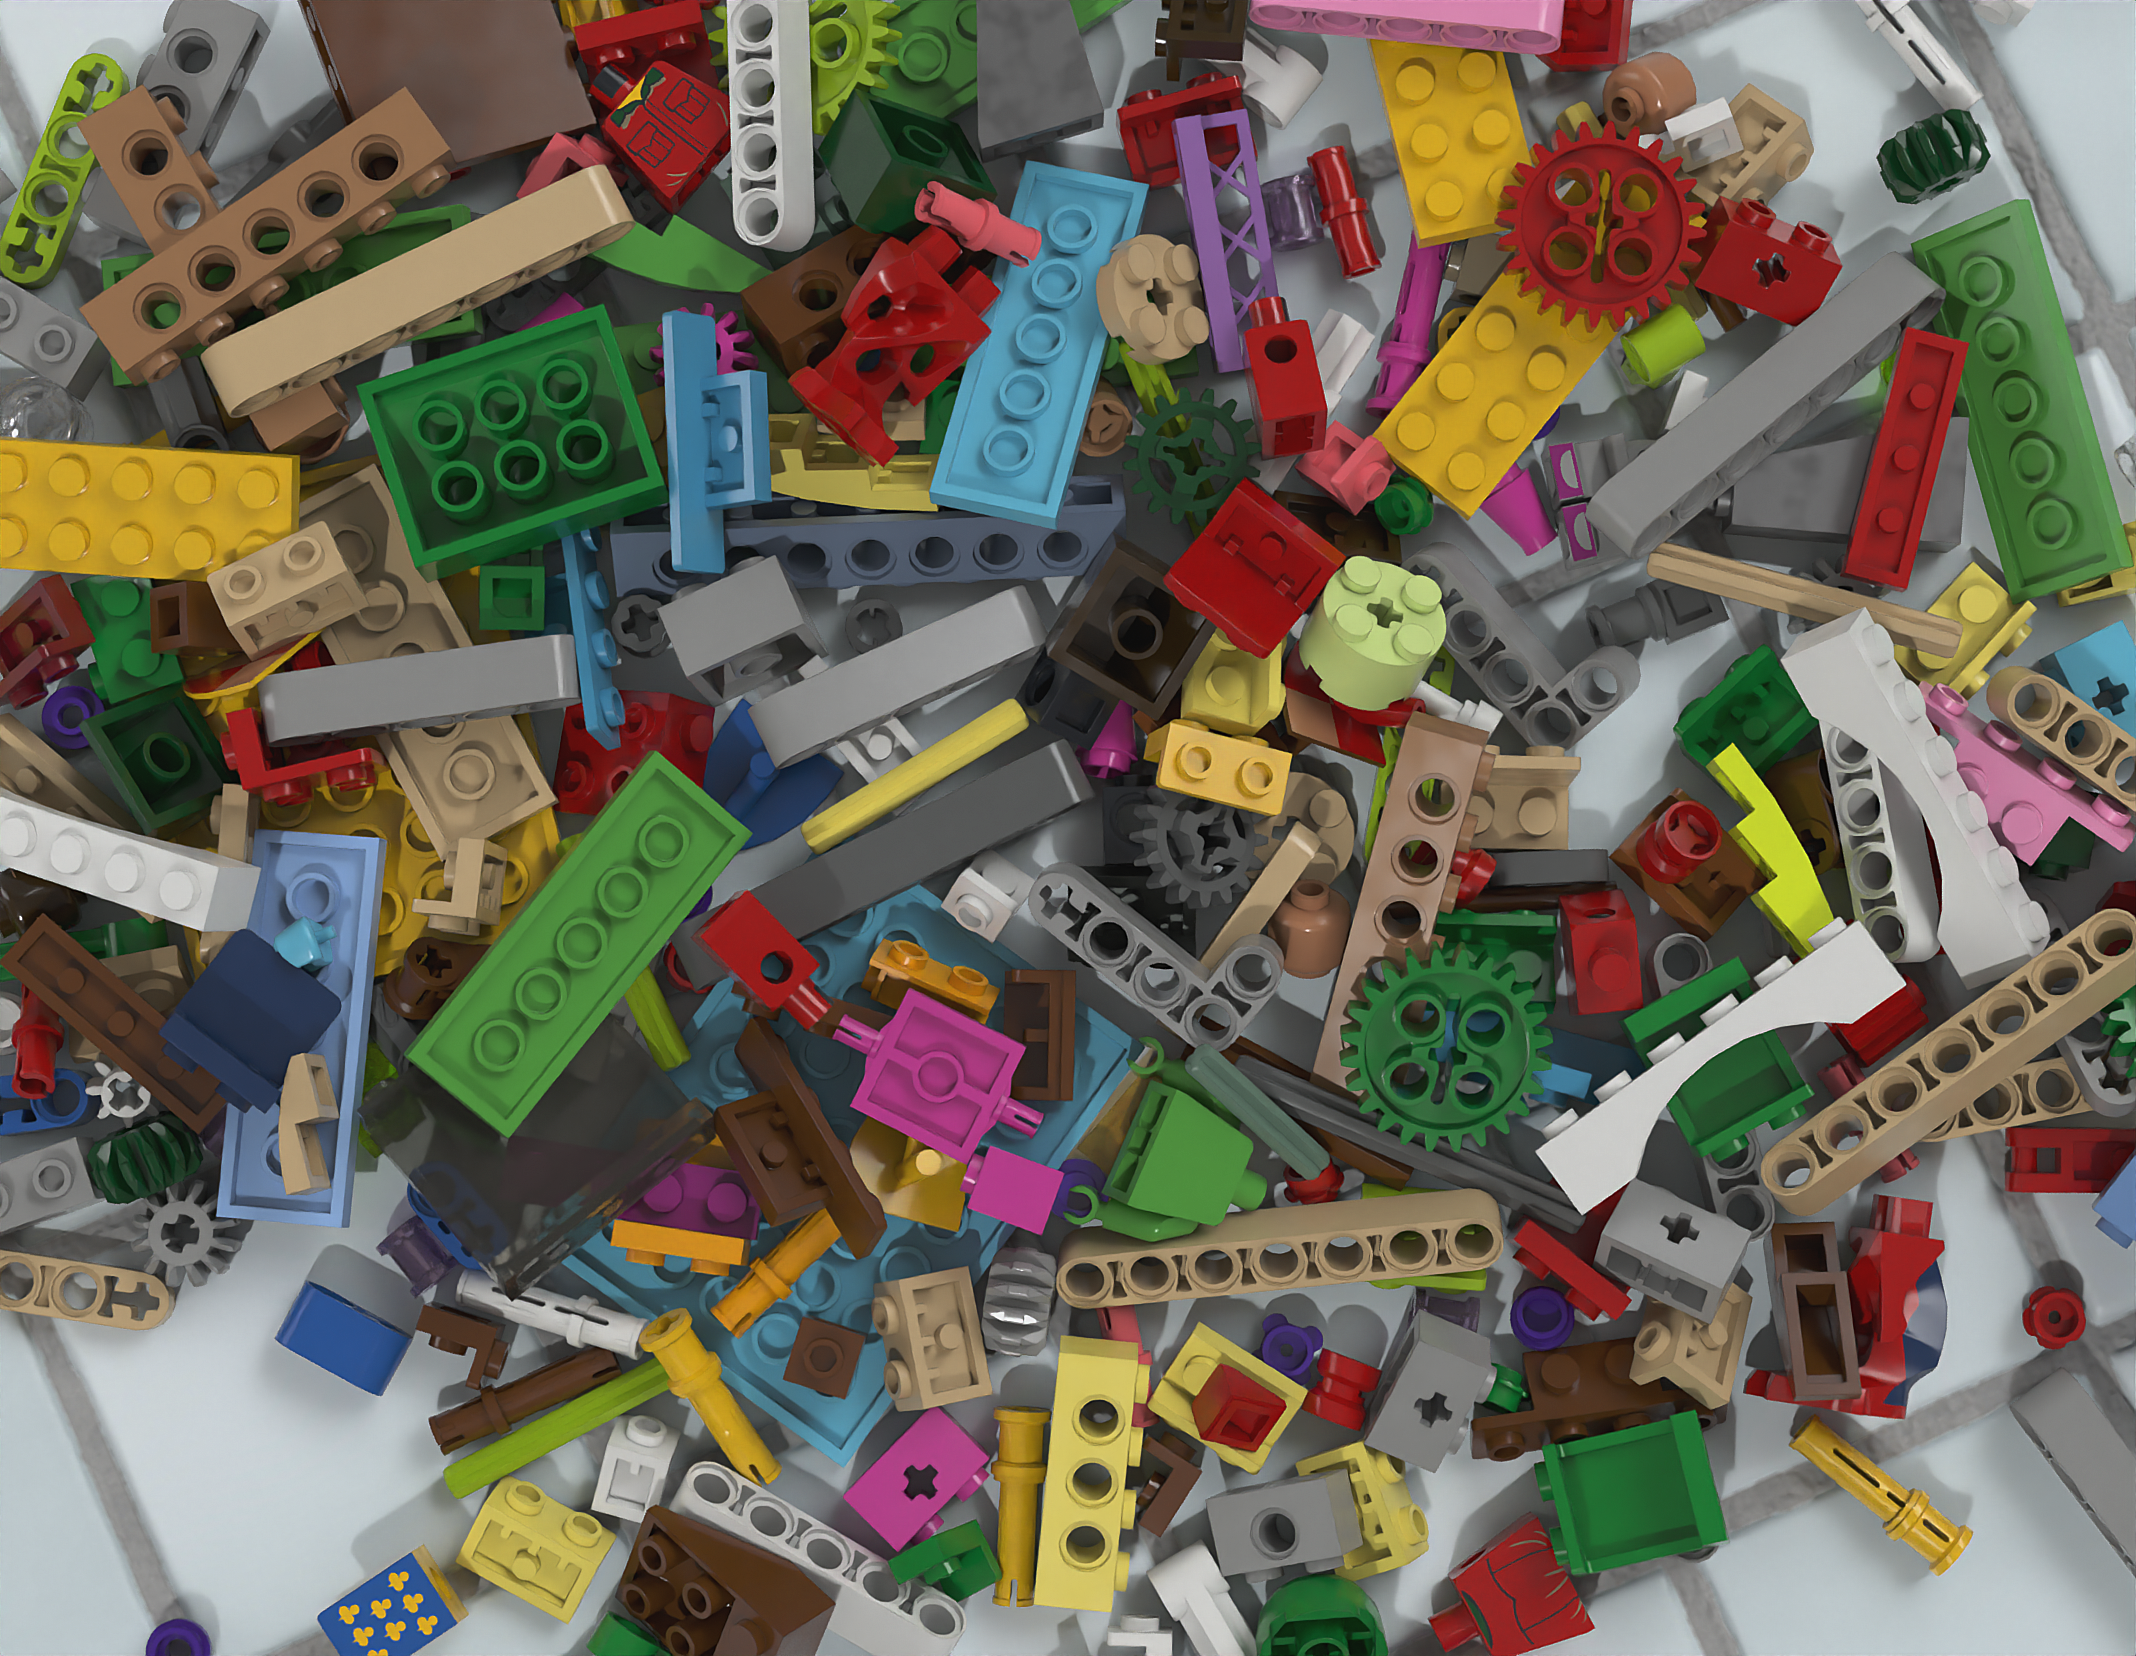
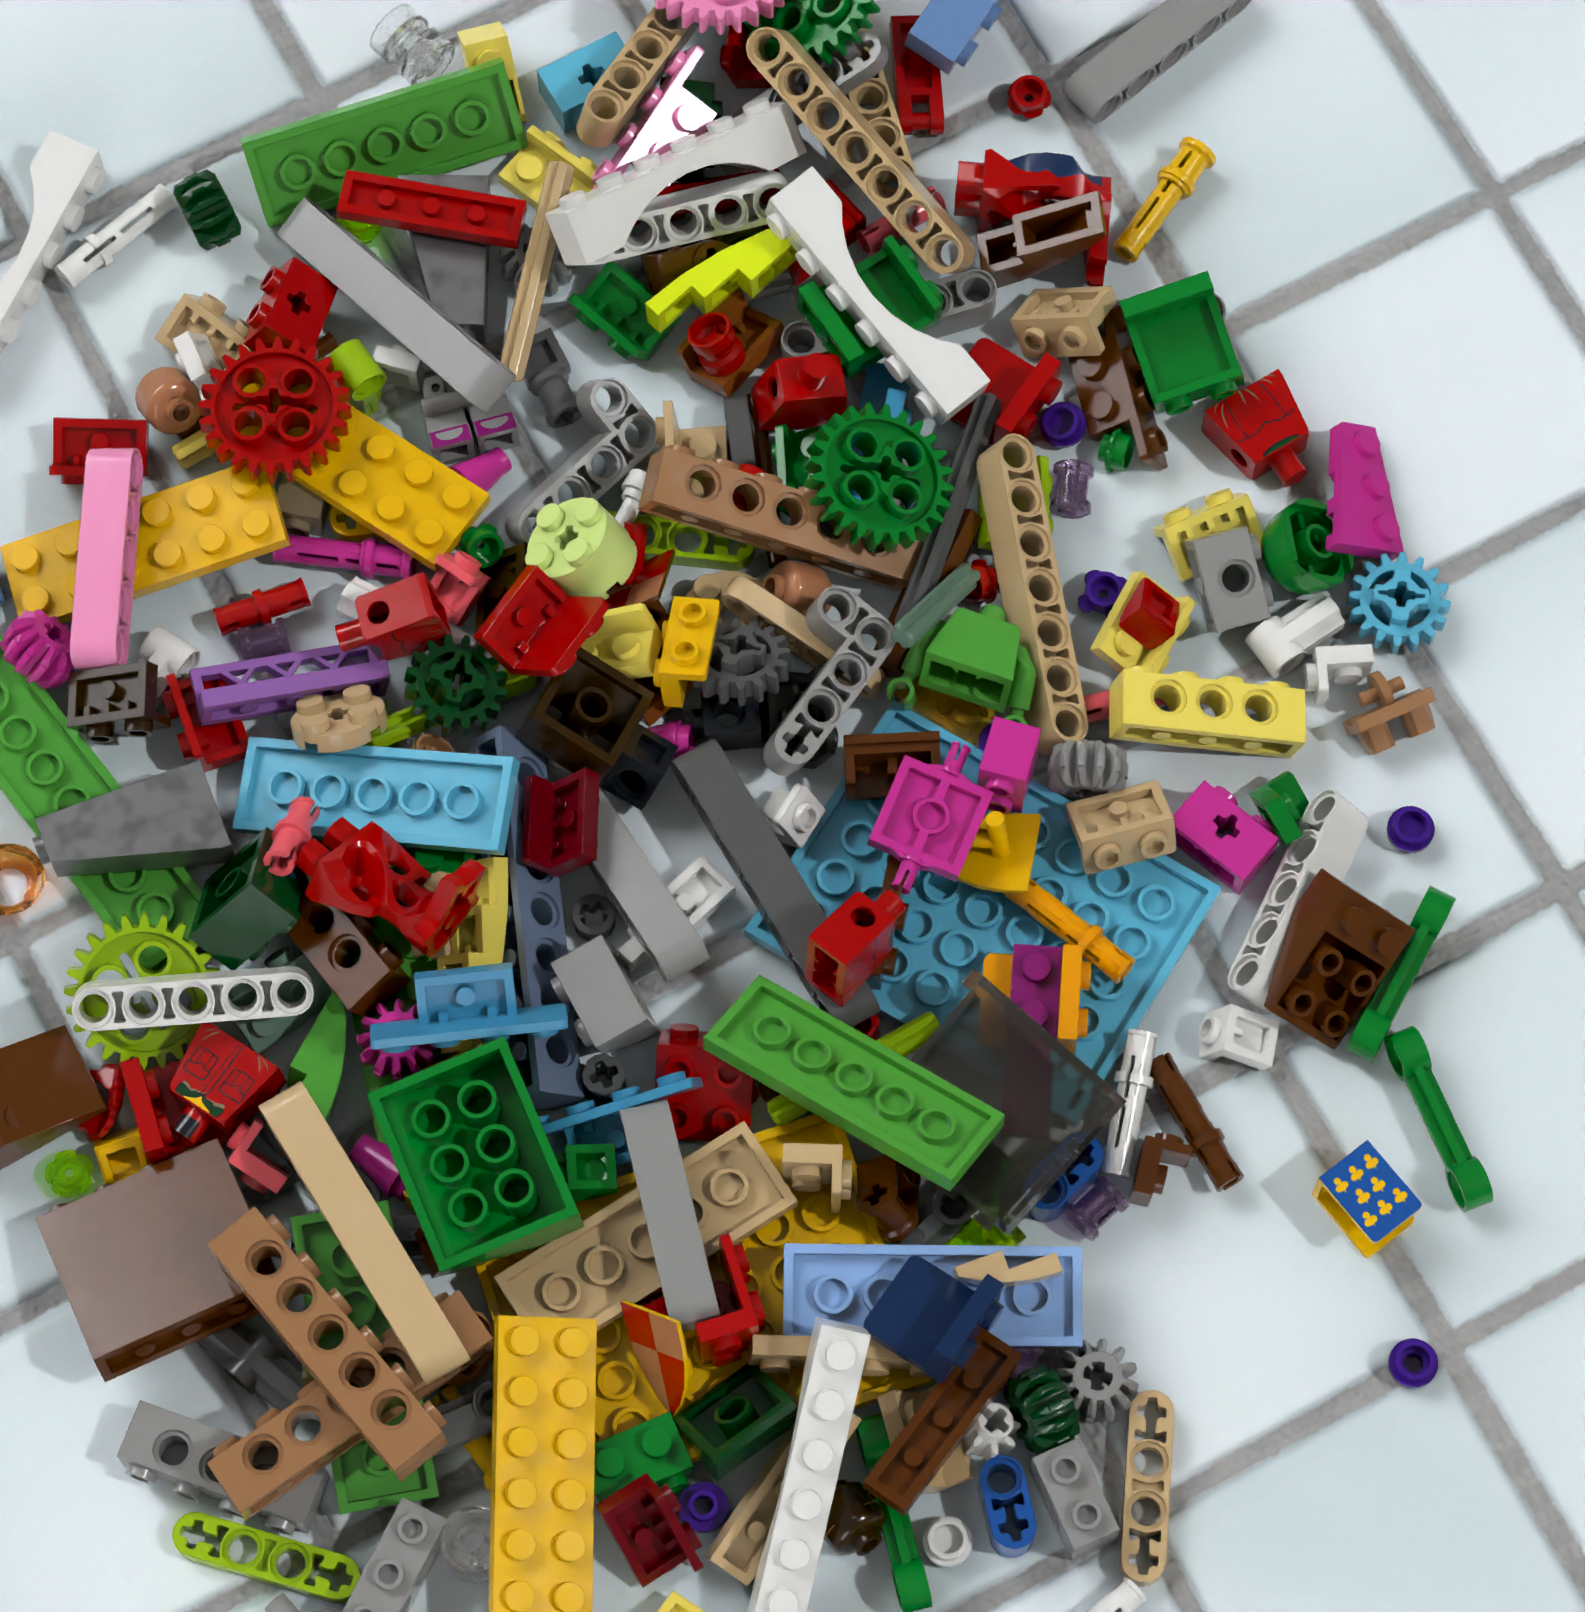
camera: 90 degrees left, 15 degrees down
(37, 1040) = (958, 1498): red pin -> none
(189, 622) = (624, 1393): reddish brown brick -> none
(286, 591) = (599, 1315): tan bracket -> none
(306, 944) = (869, 1284): medium azure piece -> none
(343, 1338) = (1164, 1257): blue beam -> none
(536, 1547) = (1305, 1104): light yellow bracket -> none
(556, 1428) = (1213, 1096): lime axle -> none
(696, 1376) = (1166, 989): yellow pin -> none
(753, 790) = (707, 990): blue shield -> none
(789, 1148) = (991, 920): reddish brown bracket -> none
(825, 1356) = (1142, 895): reddish brown brick -> none
(907, 965) = (853, 860): light orange hinge -> none
(914, 776) = (706, 870): light yellow axle -> none
(982, 583) = (561, 822): none -> dark red bracket
(1019, 1472) = (1209, 765): yellow pin -> none
(1165, 1494) = (1209, 660): reddish brown bracket -> none
(1341, 1389) = (1126, 551): red wheel -> none
(1429, 1391) = (1124, 488): light grey brick -> none
(1671, 1250) = (1009, 328): light grey brick -> none

